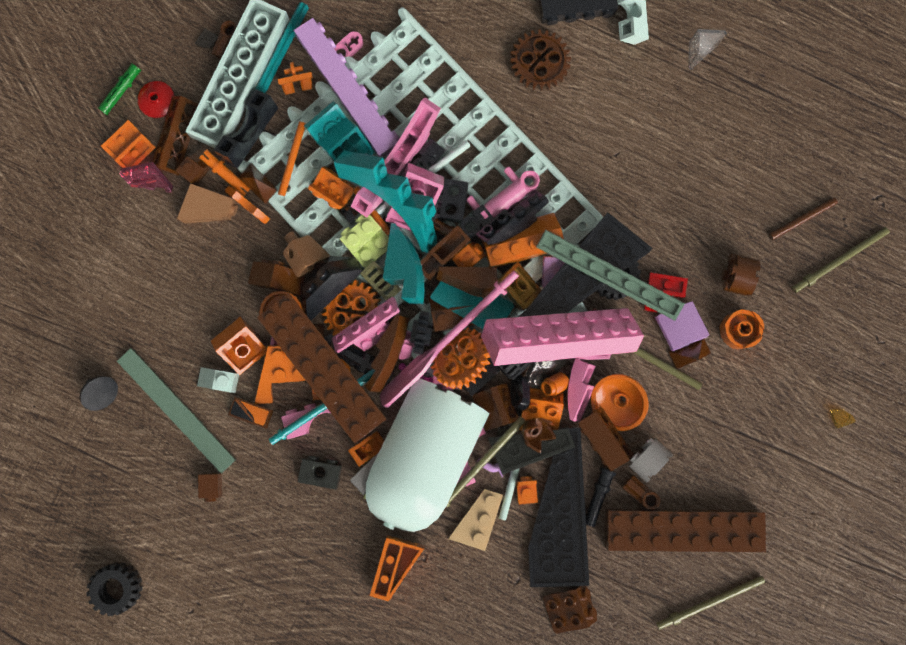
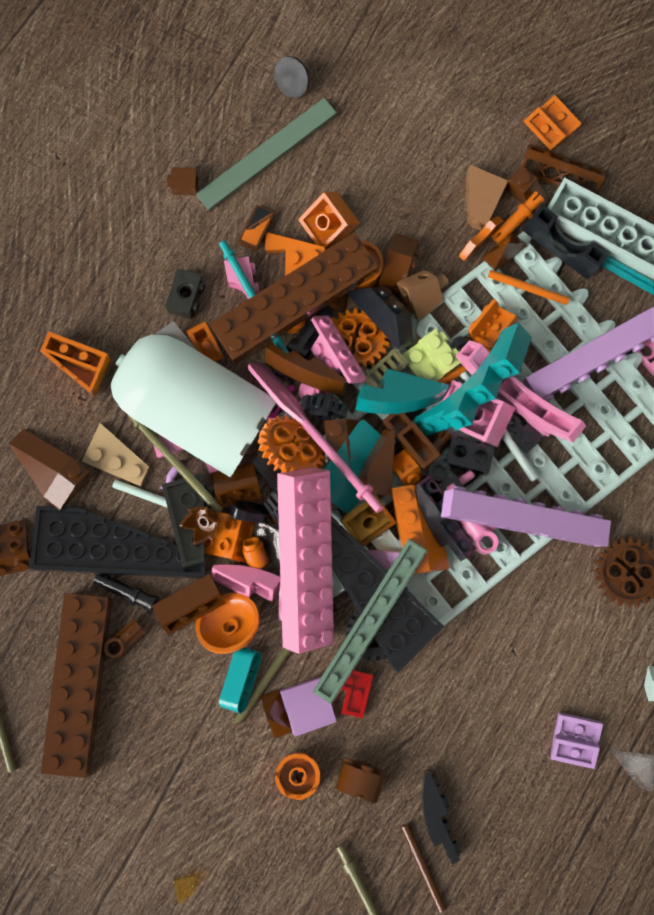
camera: 100 degrees right, 5 degrees down
(99, 595) = (83, 67): black tyre -> none
(119, 89) = (622, 122): green pin -> none
(146, 176) = (518, 137): clear pink wing -> none
(159, 107) = (593, 154): red dish -> none
(218, 380) = (294, 198): light aqua slope -> none
(287, 82) = (614, 290): orange hips -> none
(337, 133) = (552, 335): teal bracket -> none
(497, 577) = (51, 470): none -> reddish brown wedge
(506, 149) = (525, 518): none -> lavender brick
(526, 490) = (142, 512): orange bracket -> none
(650, 460) = (159, 651): light grey brick -> none
(667, 386) = (240, 680): none -> teal beam
(685, 98) = (576, 740): none -> lavender slope
(760, 211) = (434, 809): none -> black slope

